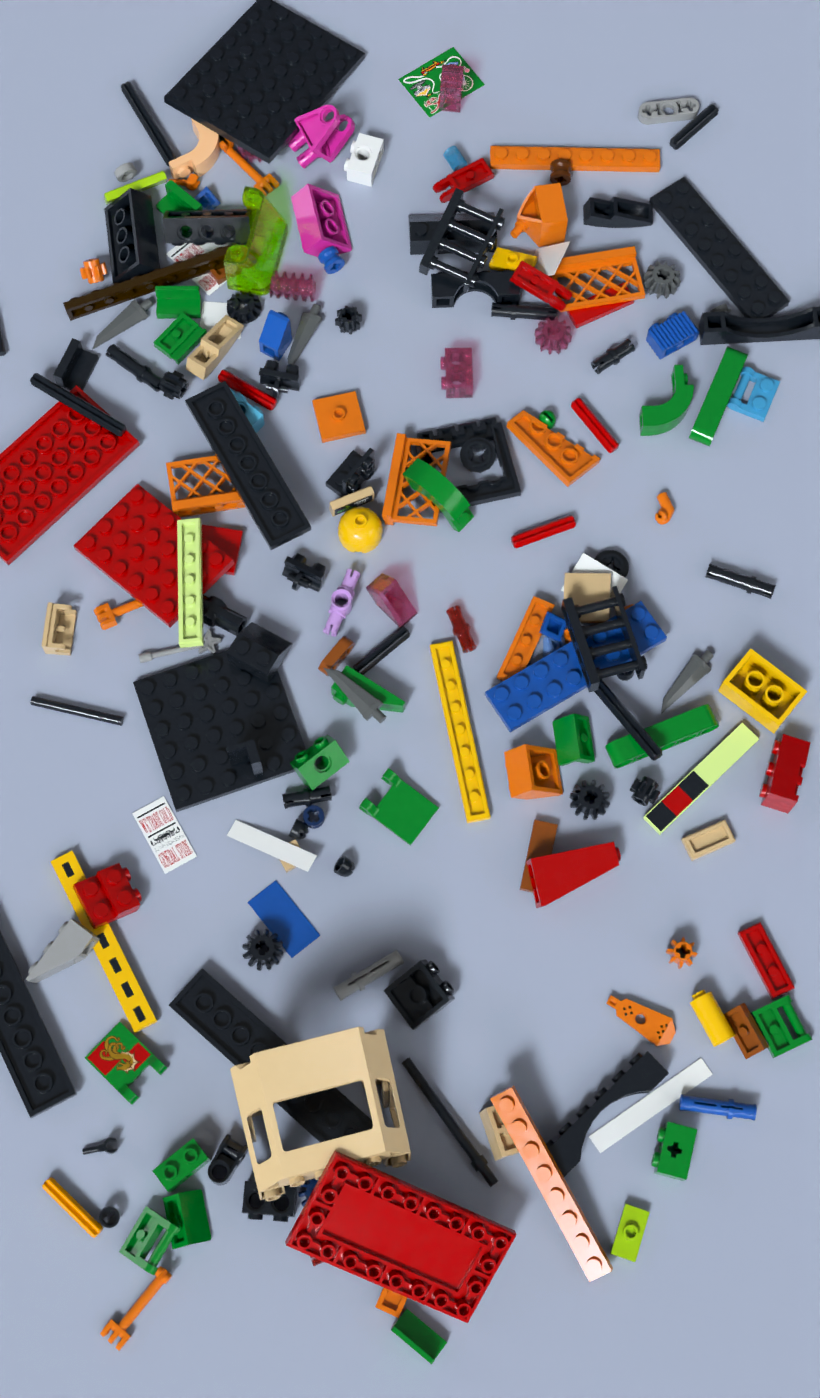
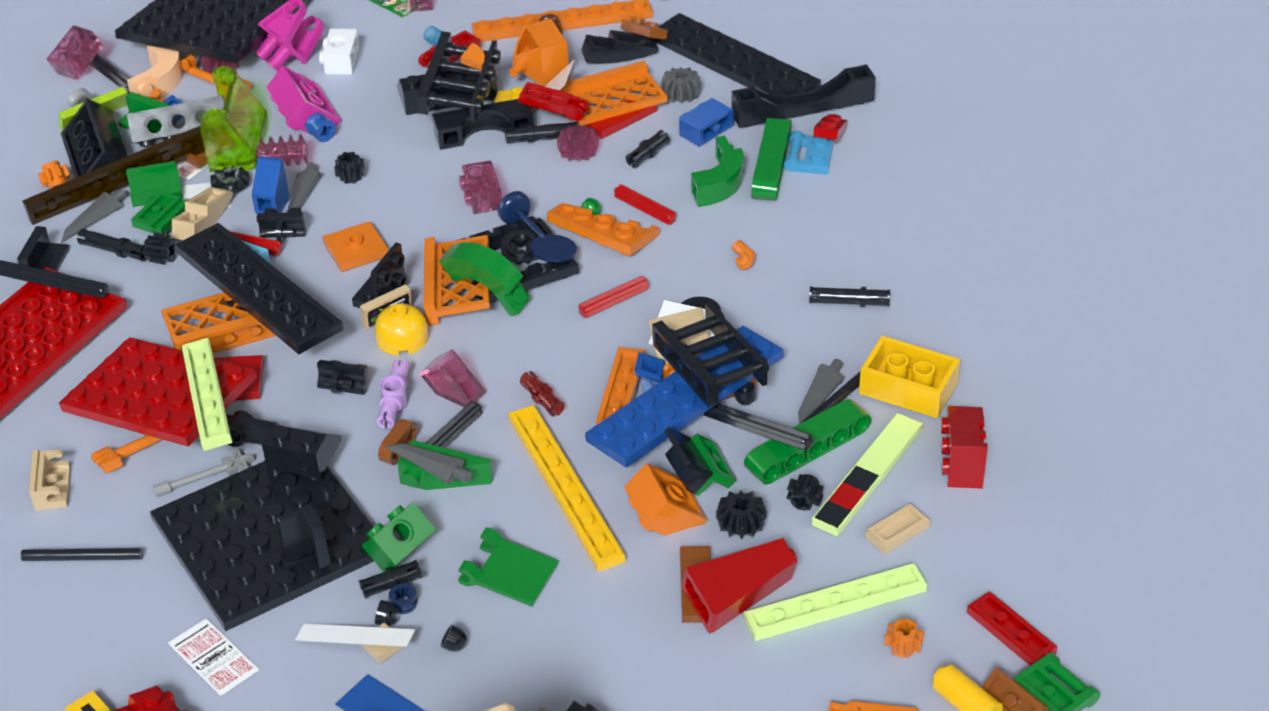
camera: 10 degrees left, 30 degrees down
(123, 107) = (74, 52): none -> clear pink brick
(479, 225) = (473, 57): none -> orange tile
(501, 466) = (545, 247): none -> dark blue piece
(560, 737) = (687, 461): none -> black panel
(640, 900) = (834, 601): none -> yellowish green tile
(645, 196) = (648, 29): none -> dark orange plate
(691, 696) = (838, 396): none -> black bar
(780, 370) = (830, 127): none -> red plate

